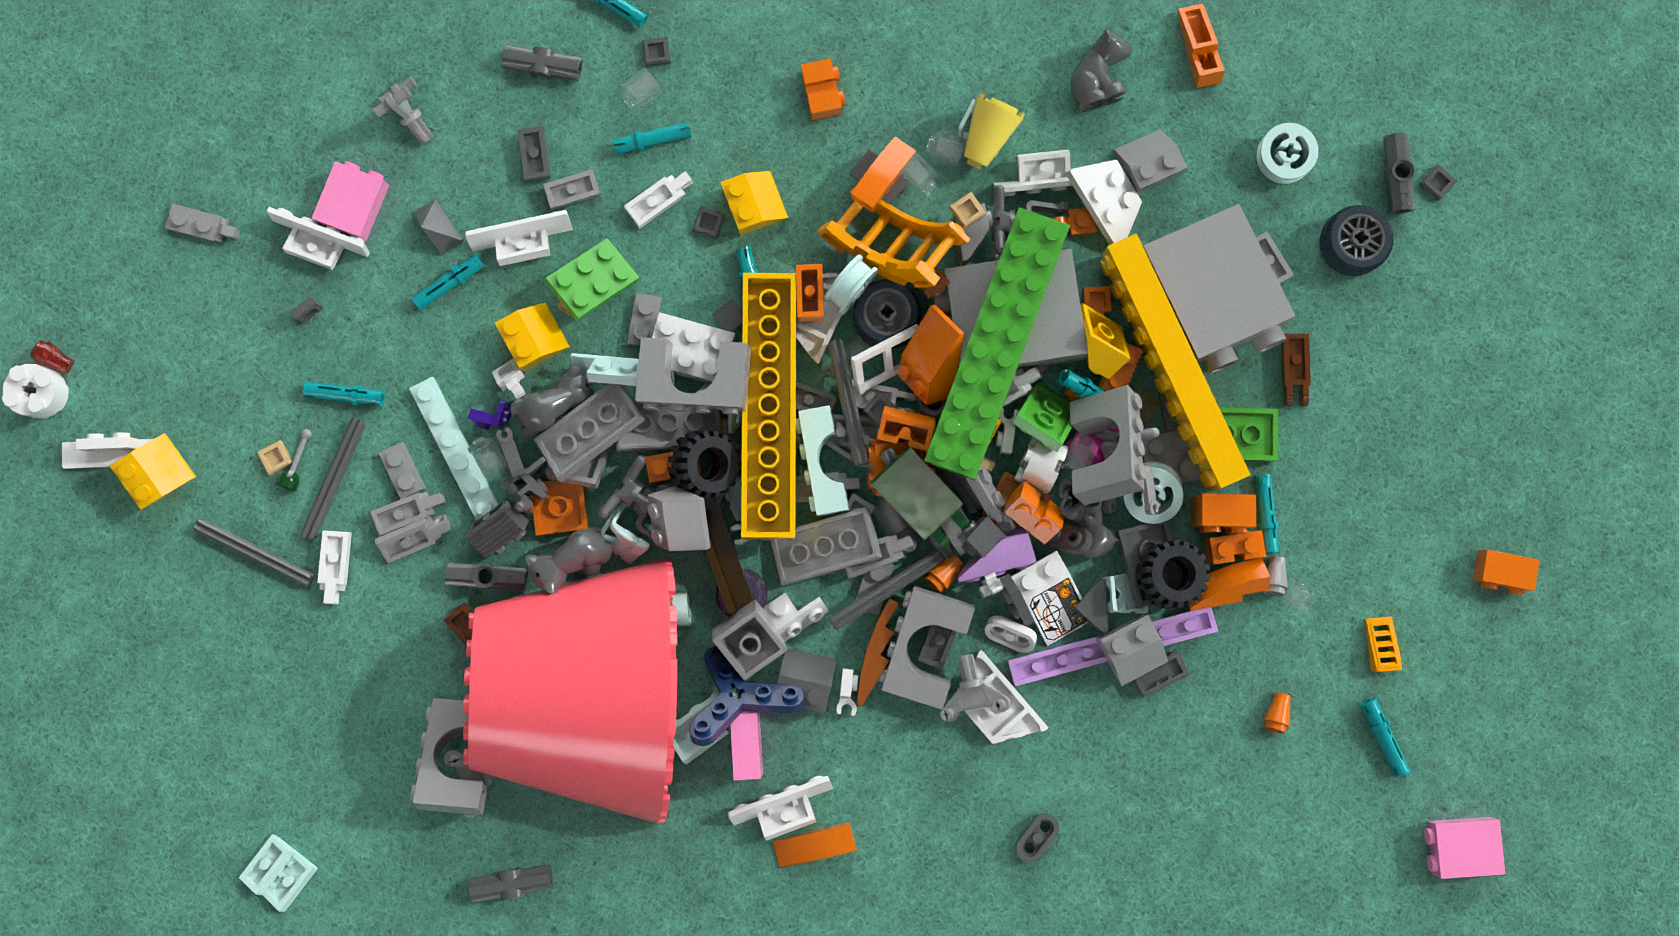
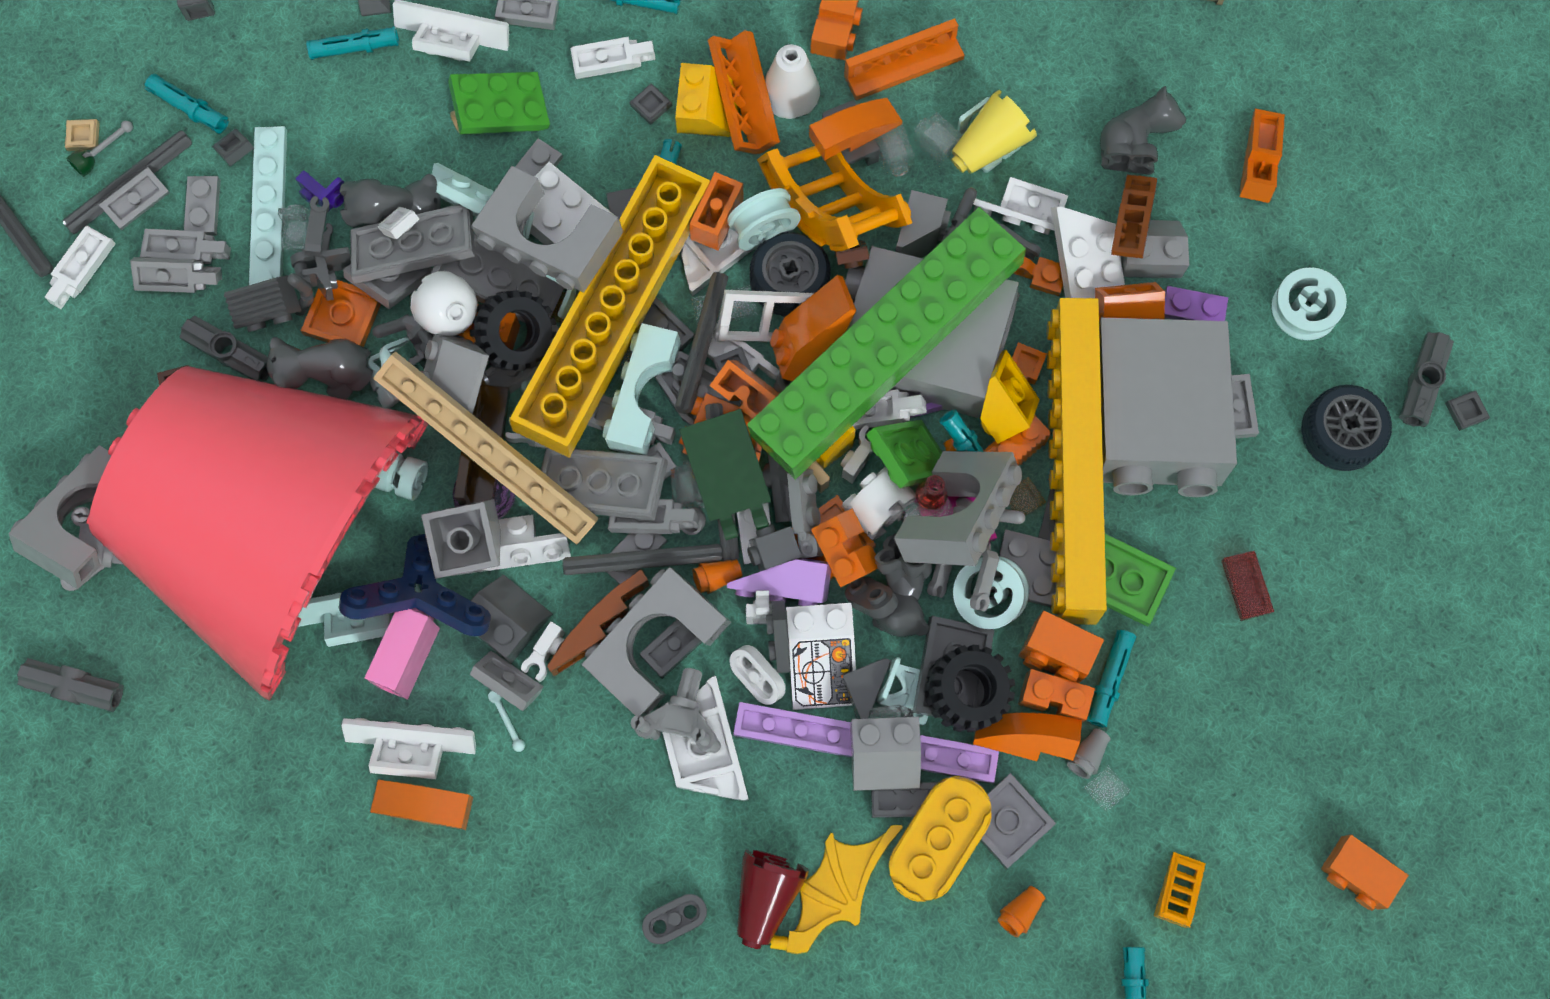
camera: 25 degrees right, 10 degrees down
(347, 491) = (134, 198): none -> light grey plate
(401, 412) = (233, 147): none -> dark grey tile
(508, 377) = (362, 161): white plate -> none
(532, 336) = (407, 131): yellow slope -> none
(572, 420) = (398, 222): none -> white tile
(645, 471) = (444, 304): none -> white cylinder
(732, 566) = (485, 447): none -> tan plate
(782, 180) = (749, 92): none -> orange fence
(812, 159) = (792, 83): none -> white cone
(826, 741) = (518, 744): none -> light aqua hinge
(830, 726) = (506, 680): none -> light grey plate
(889, 95) = (903, 59): none -> orange fence
(967, 210) = (924, 196): tan tile -> none
(1074, 445) = (932, 499): none -> clear red cone
(1095, 789) = (766, 895): none -> dark red cone
(1123, 618) = (891, 712): none -> clear tile
(1129, 147) = (1134, 216): none -> dark orange slope
(1139, 761) = (835, 889): none -> yellow animal
(1156, 218) = (1131, 301): none -> orange brick
(1198, 690) = (940, 839): none -> yellow tile
(1202, 194) = (1194, 305): none -> medium lavender plate
(1240, 653) = (1015, 821): none -> flat silver plate
(1295, 367) = (1217, 532): reddish brown hinge -> none
(1335, 396) = (1247, 585): none -> clear red plate

